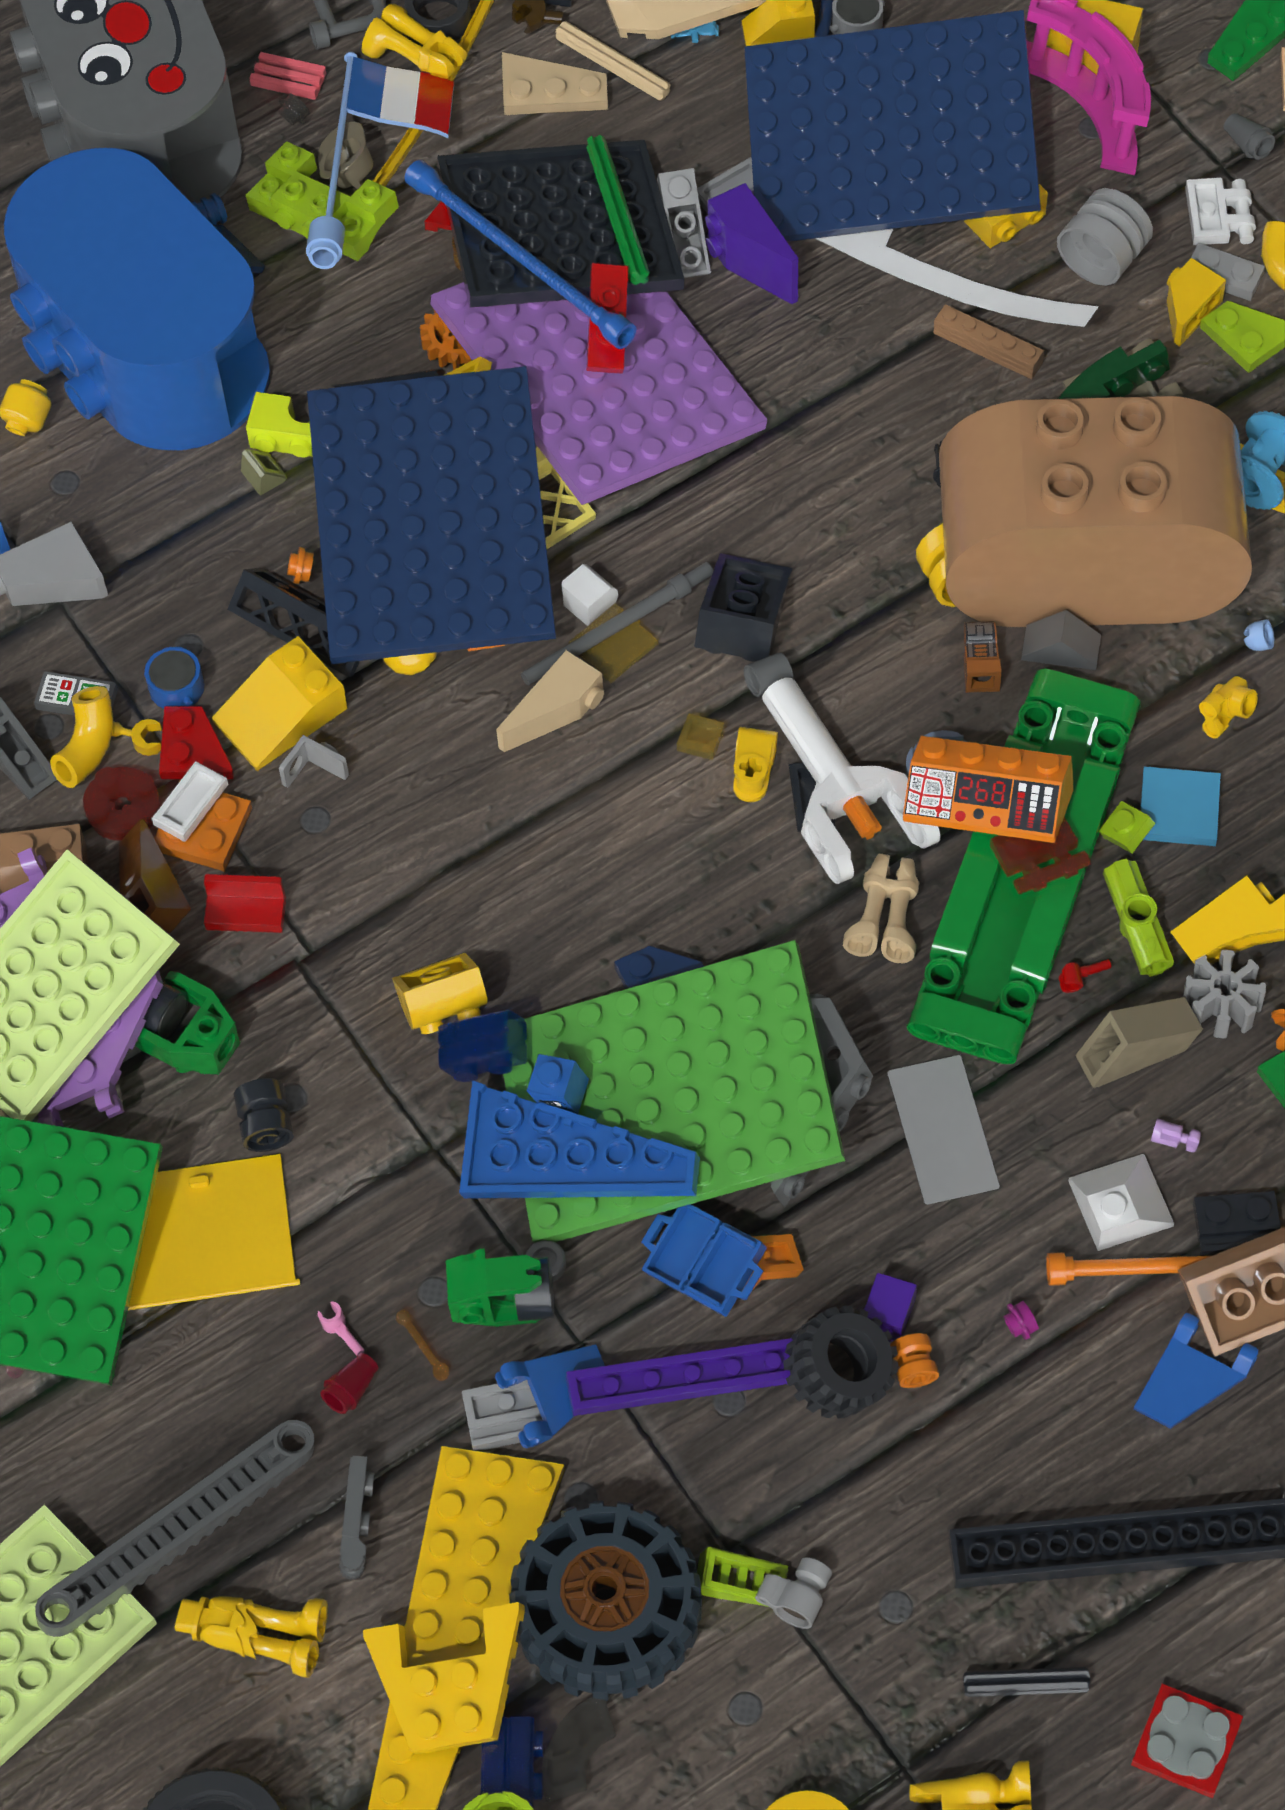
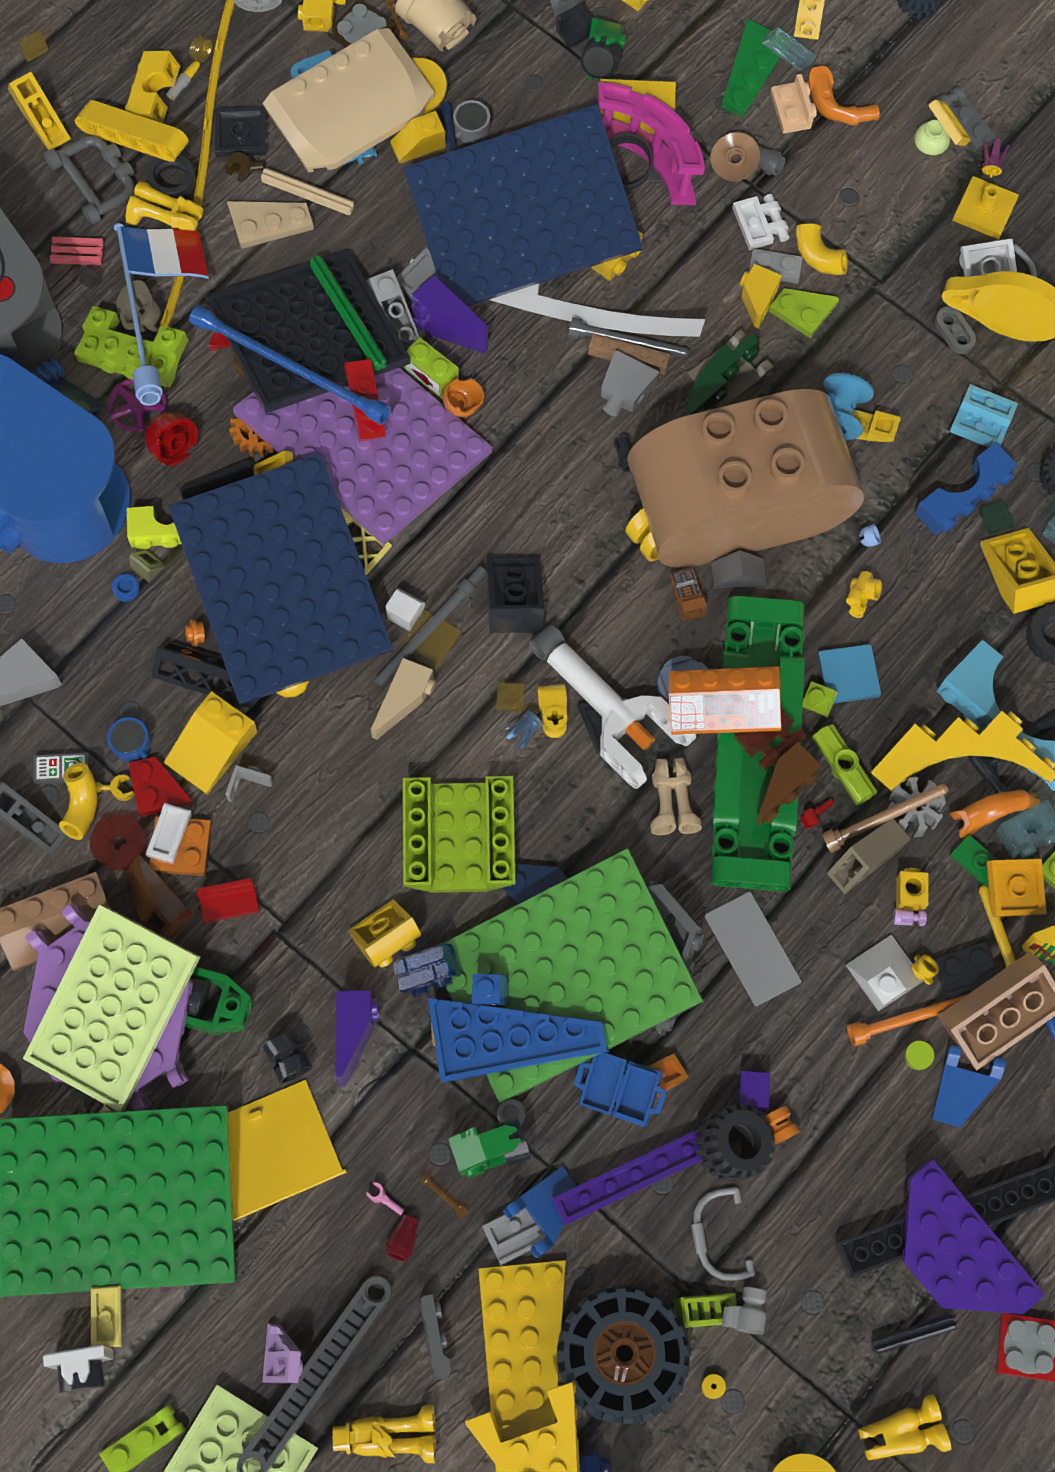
camera: 20 degrees left, 10 degrees up
(140, 1491) = (282, 1357): none -> lavender wing
(227, 494) = (126, 587): none -> blue tile
(307, 278) = (132, 406): none -> magenta wheel
(340, 320) = (170, 437): none -> red cylinder
(359, 1100) = (354, 1025): none -> dark purple slope
(574, 890) = (458, 835): none -> lime slope
(712, 305) = (430, 367): none -> lime brick
(715, 770) = (528, 721): none -> flat silver piece
(719, 1689) = (713, 1393): none -> yellow piece
(744, 348) = (463, 397): none -> orange hair
(759, 1480) = (699, 1236): none -> light grey piece
(928, 296) = (580, 329): none -> dark grey piece
(974, 376) = (627, 383): none -> light grey torso
(1020, 1320) = (842, 1077): magenta plate -> none
(1050, 907) = (790, 774): none -> reddish brown slope
(1066, 72) = (634, 139): none -> black tyre
(1096, 1009) = (837, 838): none -> medium nougat piece
(1104, 236) = (691, 260): light grey wheel -> none
(1117, 1582) = (958, 1252): none -> dark purple plate
(1138, 1319) = (919, 1055): none -> lime tile
(1177, 1205) = (924, 968): none -> yellow plate
(1185, 1113) = (907, 900): none -> yellow brick
(1205, 111) = (733, 146): none -> medium nougat dish

